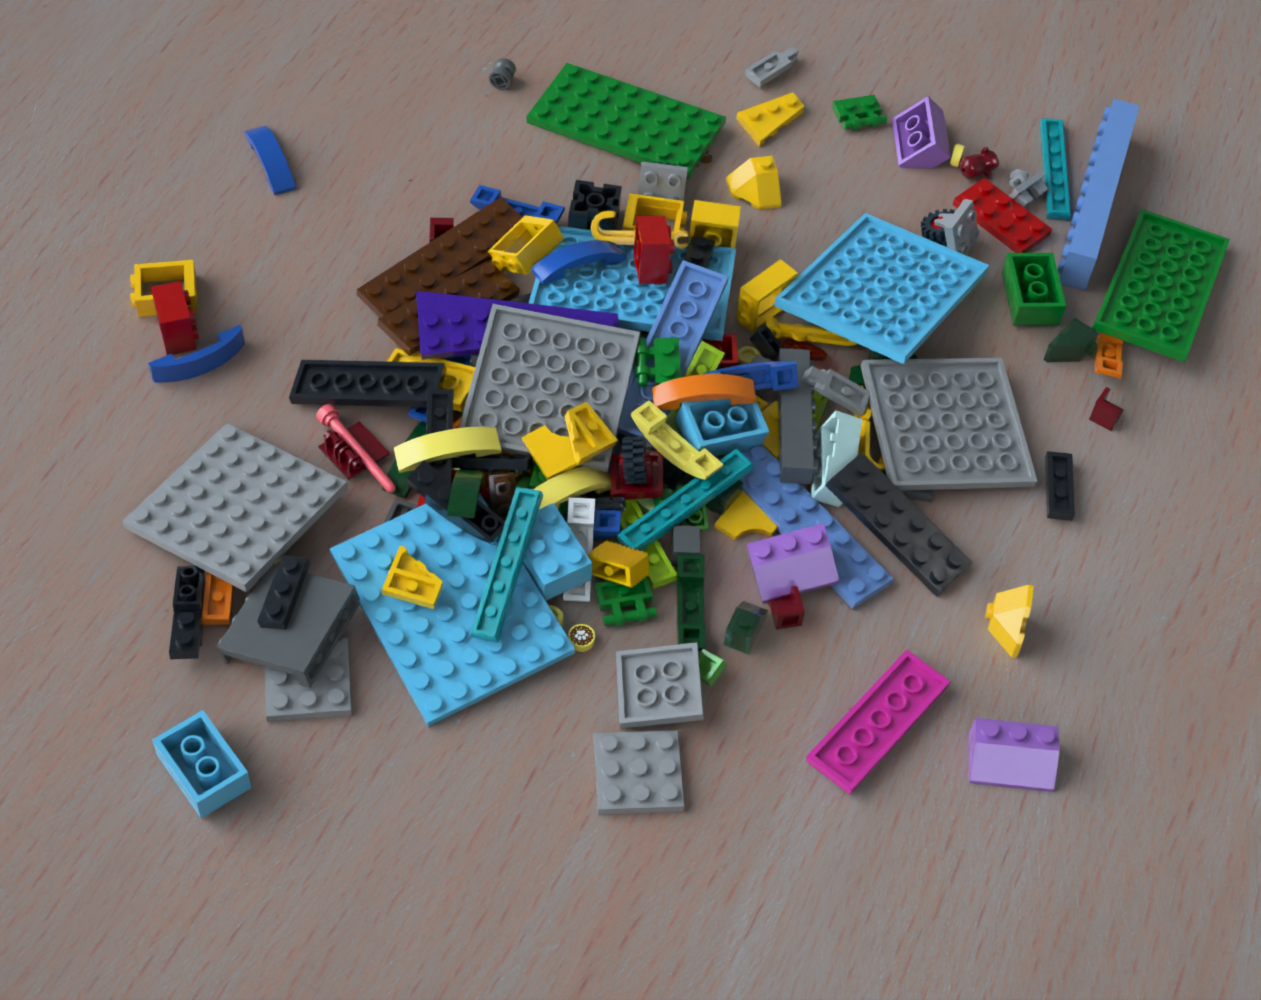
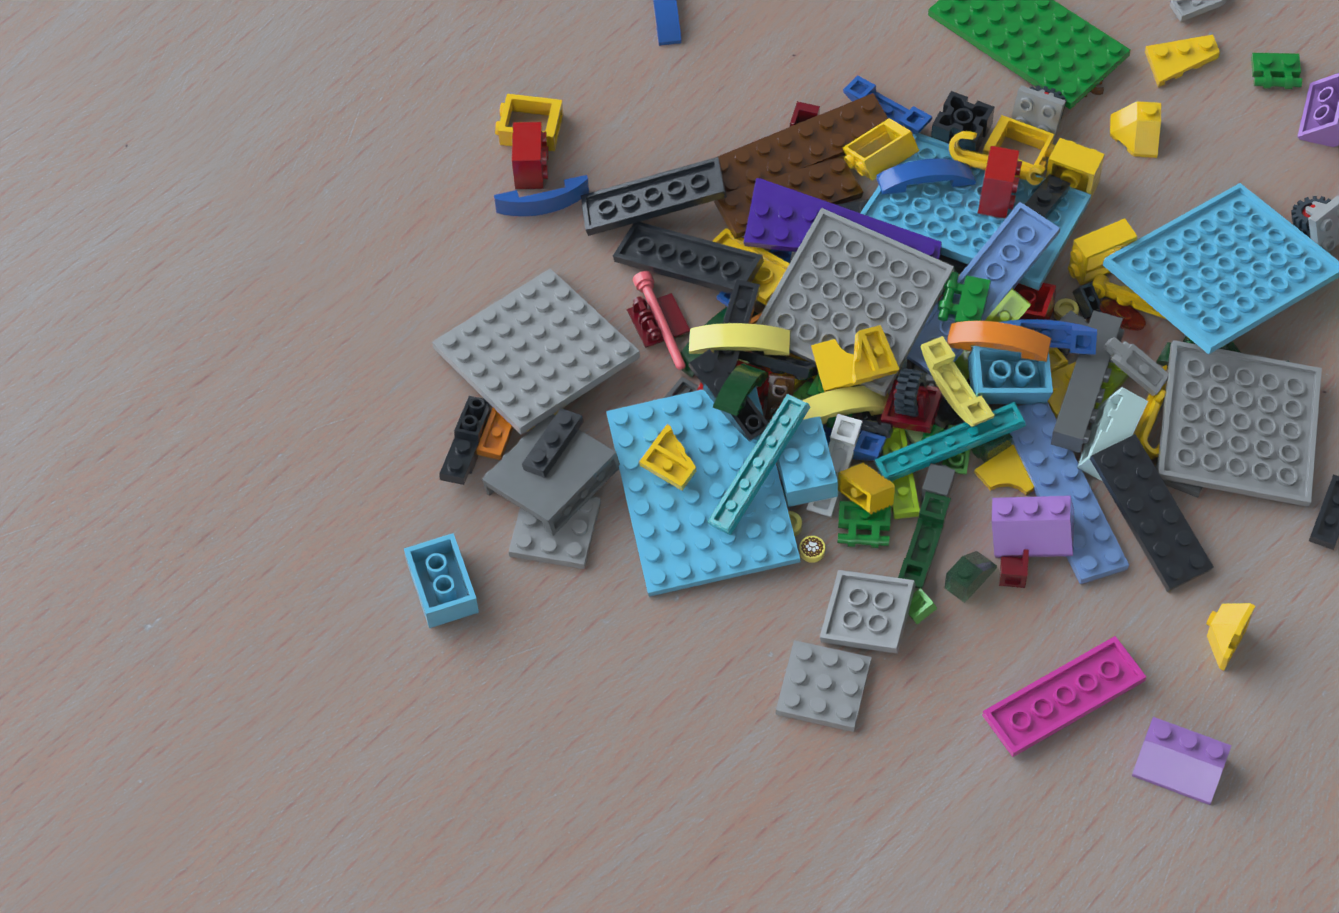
camera: 25 degrees right, 5 degrees up
(314, 331) = (653, 196): none -> black plate

